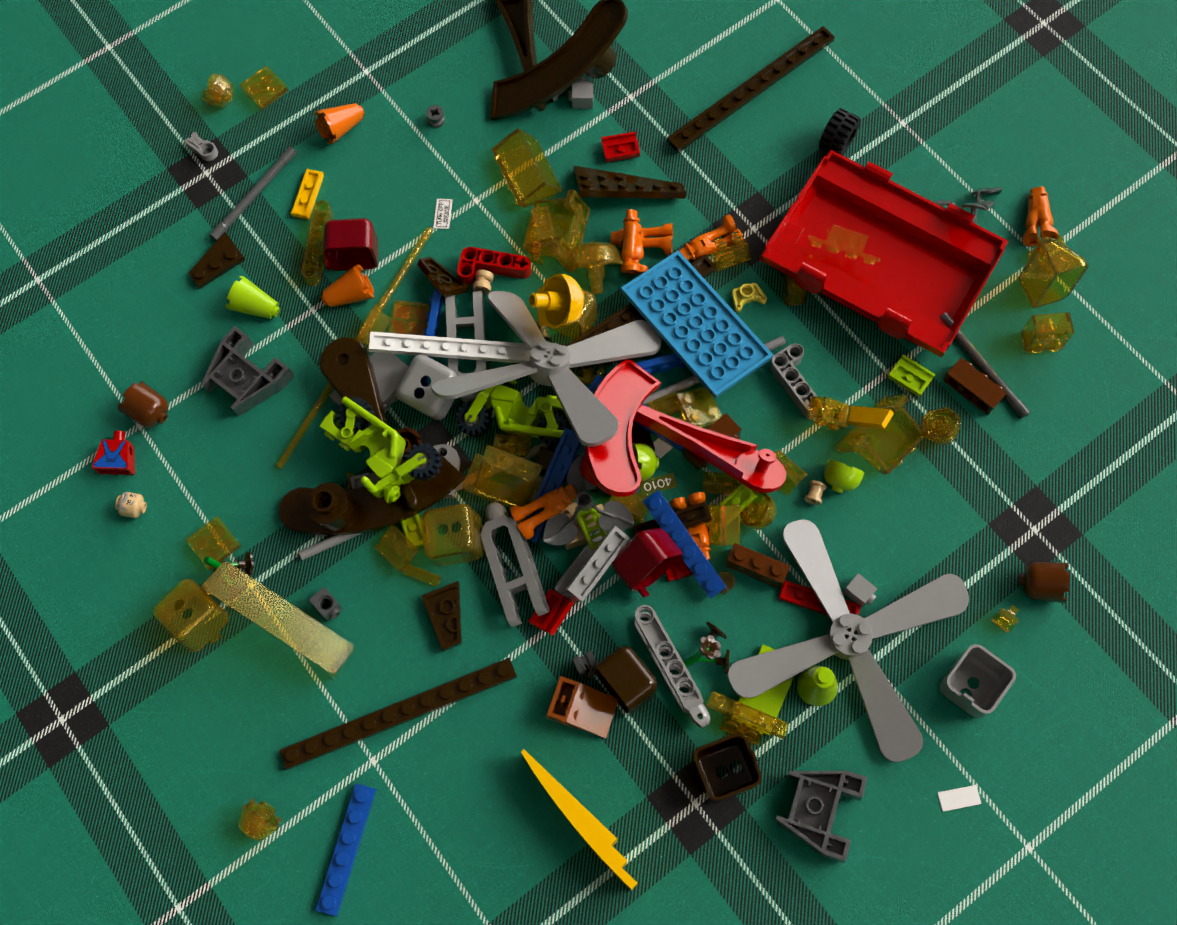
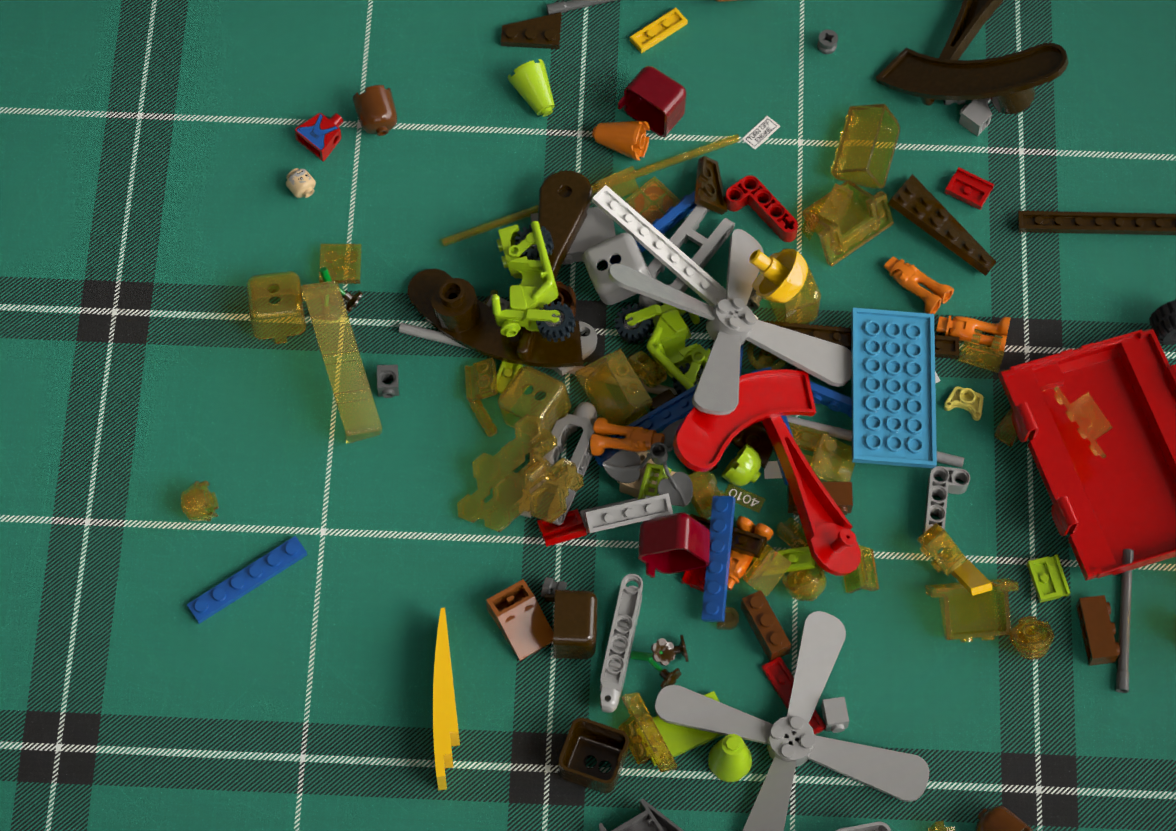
camera: 35 degrees right, 5 degrees down
(240, 376) = (472, 144): flat silver wedge -> none
(316, 250) = (621, 81): clear yellow beam -> none
(397, 714) = (374, 511): dark brown plate -> none
(445, 614) = (463, 479): dark brown wing -> none
(483, 281) = (743, 216): tan wheel -> none
(493, 614) = (513, 489): none -> clear yellow piece
(593, 258) = (853, 265): clear yellow piece -> none
(632, 246) = (898, 280): orange piece -> none
(815, 492) = (871, 607): tan bush -> none
(842, 476) = (905, 611): lime cylinder -> none

